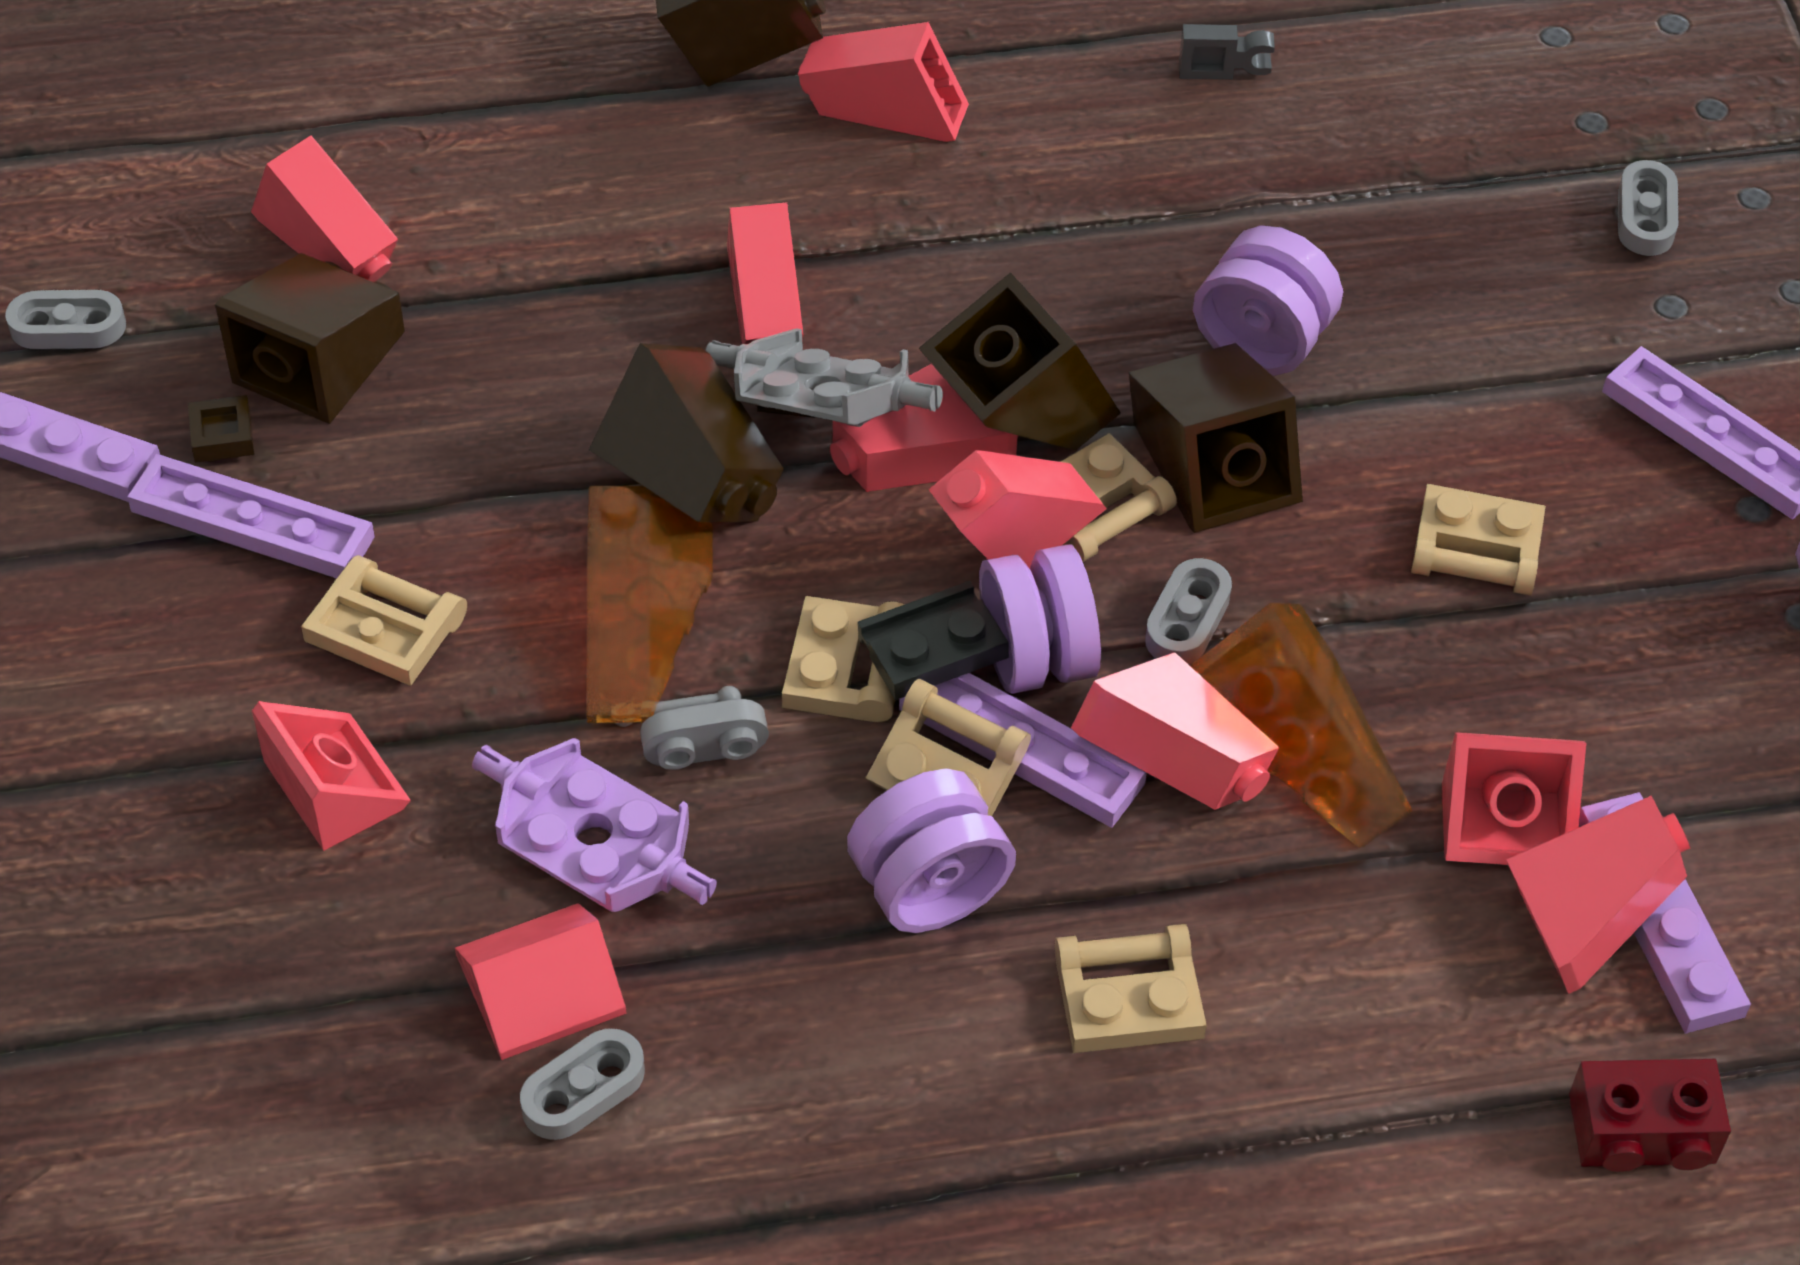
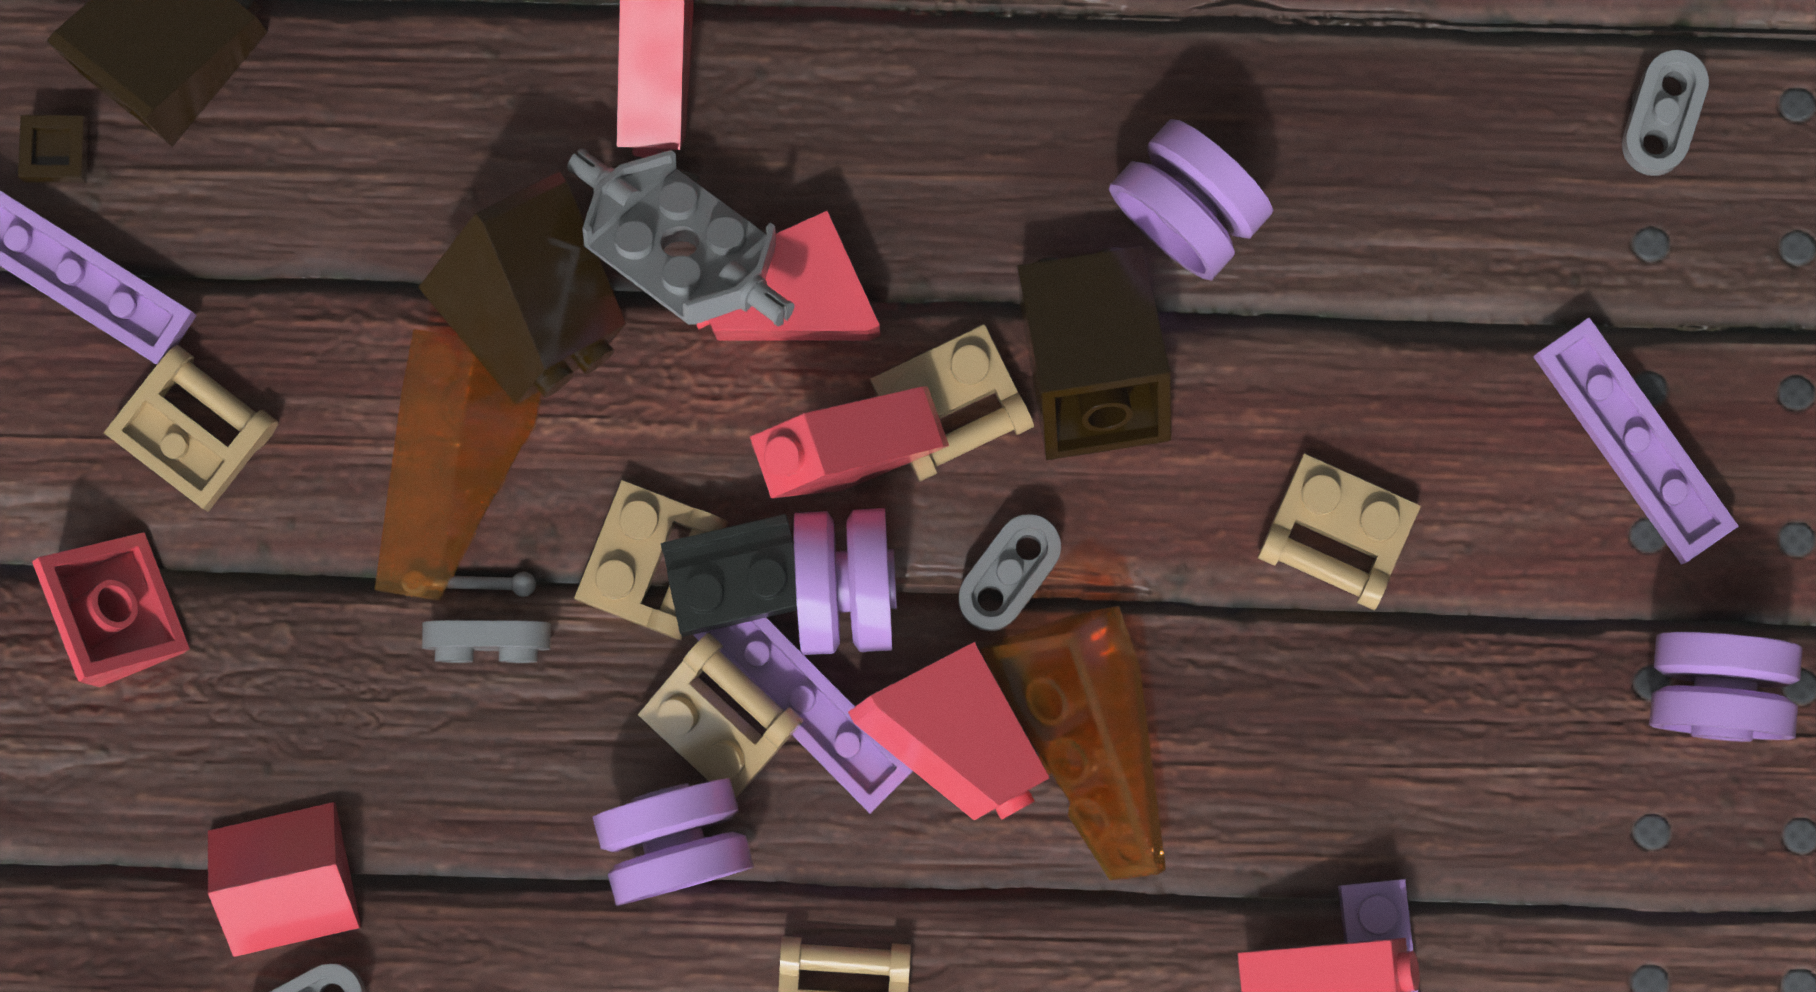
camera: 15 degrees right, 30 degrees up
(559, 796) = (308, 710): lavender plate -> none
(1021, 369) = (893, 263): dark brown slope -> none
(1509, 795) = (1269, 879): coral slope -> none

